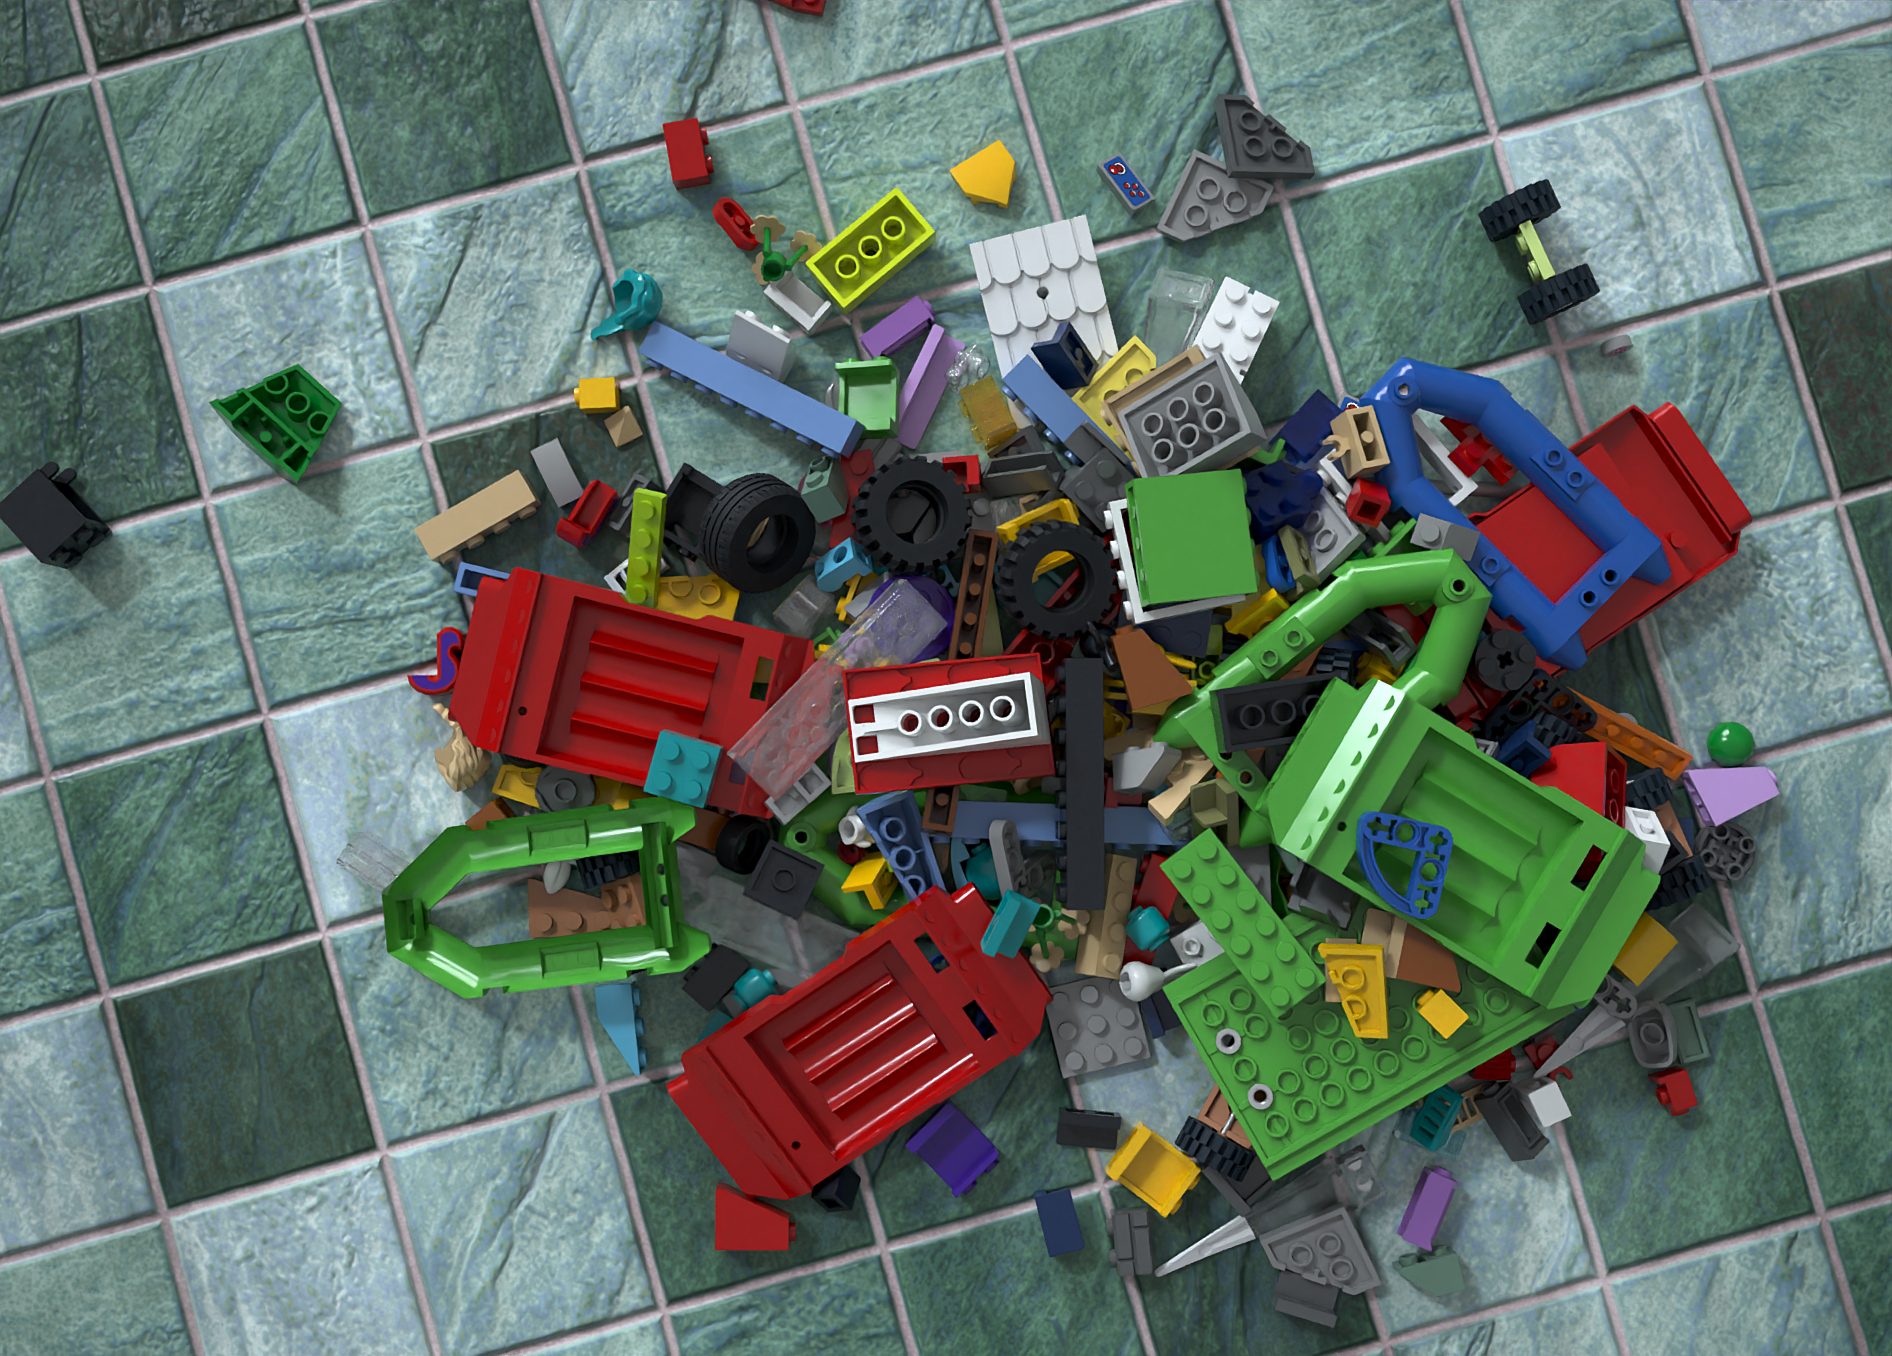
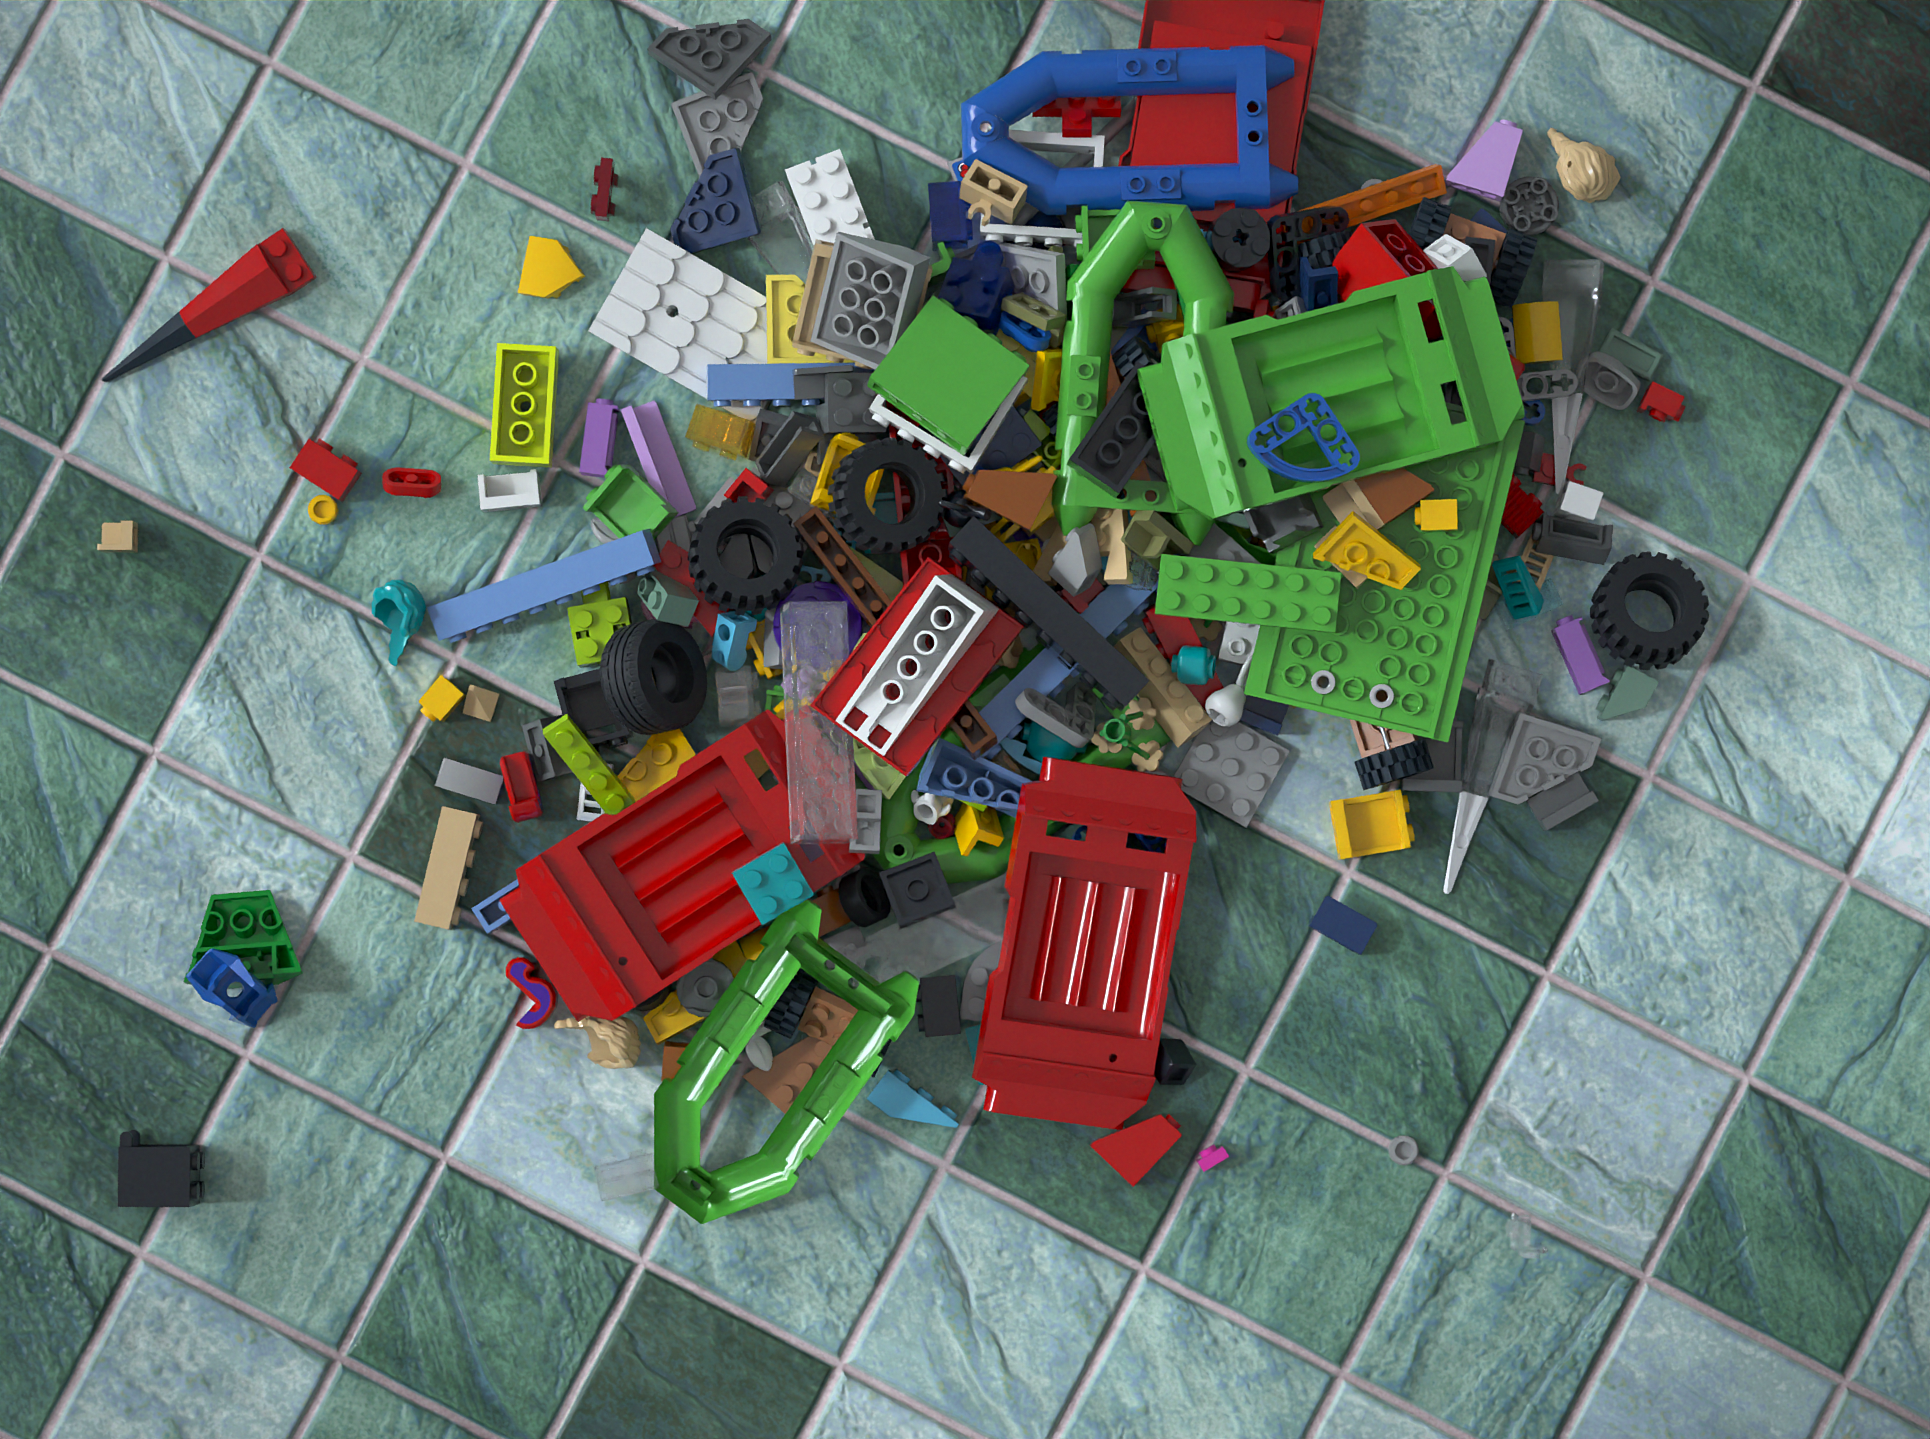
camera: 45 degrees left, 0 degrees up
(238, 419) = (214, 975): none -> blue piece
(498, 53) = (119, 537): none -> tan panel
(657, 180) = (323, 509): none -> yellow tile
(754, 988) = (973, 984): teal head -> none
(760, 346) = (520, 549): white slope -> none
(760, 453) = (596, 623): none -> lime brick
(772, 265) = (469, 485): plant -> none
(793, 1286) = (1211, 1156): none -> dark pink plate
(954, 1148) = (1222, 952): dark purple panel -> none
(966, 365) = (672, 413): clear plate -> none
(1009, 924) = (1098, 757): teal panel -> none
(1066, 358) = (736, 339): dark blue panel -> none
(1088, 1128) = (1298, 844): black panel -> none
(1092, 154) = (605, 180): none -> dark red plate
(1125, 183) = (647, 175): slope -> none
(1131, 1241) = (1405, 887): dark grey brick -> none
(1151, 253) = (717, 206): none -> dark blue plate
(1367, 502) = (1041, 226): red brick -> none
(1442, 535) = (1112, 197): light grey slope -> none
(1548, 1236) = (1669, 582): none -> black tyre
(1730, 744) = (1458, 129): green hair -> none
(1793, 866) = (1584, 168): none -> tan hair

